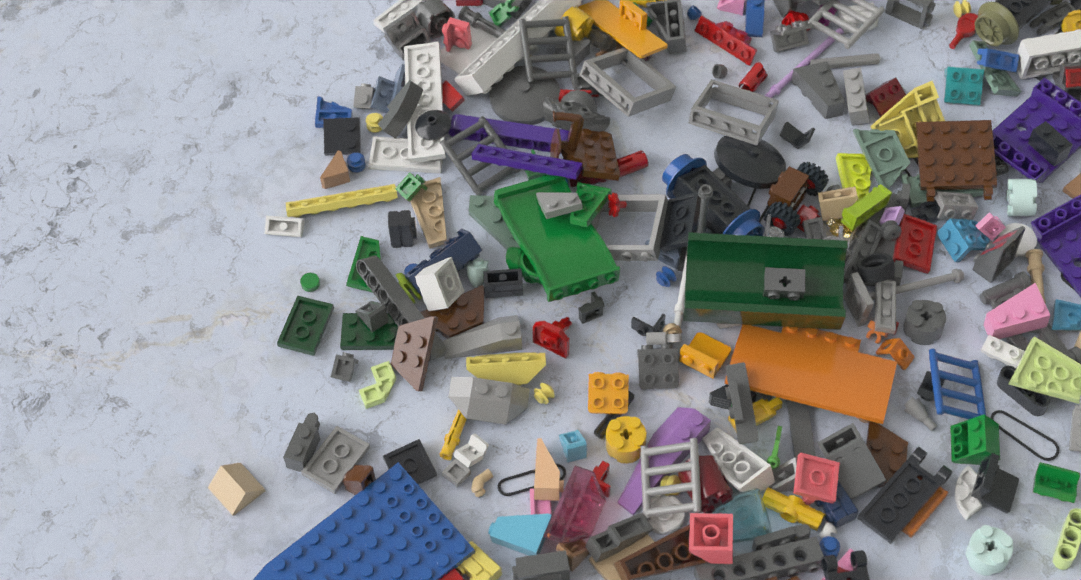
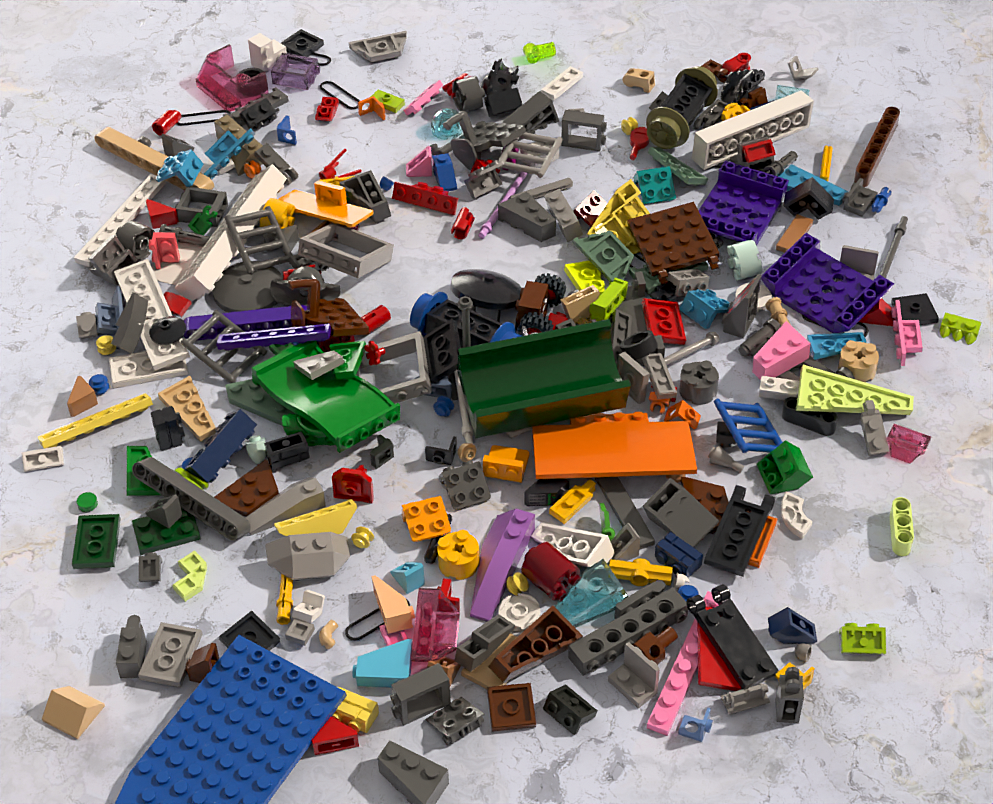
camera: 20 degrees left, 10 degrees down
(328, 110) = (60, 349): blue wing -> none
(342, 136) = (76, 362): black plate -> none
(411, 186) = (163, 388): bracket -> none
(413, 350) = (218, 531): wing -> none
(439, 284) = (224, 466): white slope -> none
(602, 40) = (308, 223): clear smoke arm -> none
(661, 338) = (461, 457): light grey bar -> none
(693, 486) = (543, 571): light grey bar -> none
(712, 537) = (578, 611): coral slope -> none
(719, 71) = (428, 224): dark grey hinge -> none
(729, 125) = (455, 261): light grey window -> none
(741, 401) = (559, 490): dark grey bracket -> none
(792, 277) = (561, 374): dark grey brick -> none
(795, 136) = (520, 262): black bracket -> none
(816, 479) = (654, 536): coral bracket -> none
(890, 230) = (639, 313): dark grey wheel -> none
(892, 213) = (635, 303): lavender plate -> none
(989, 550) = (834, 555): light aqua brick -> none
(991, 226) = (726, 289): bright pink bracket -> none
(995, 485) = (816, 500): black bracket -> none
(998, 59) = (679, 155): blue hinge -> none
(1029, 427) = (830, 447): black piece -> none
(1050, 143) = (751, 210): black brick -> none
(1056, 482) = (869, 482): green bracket -> none

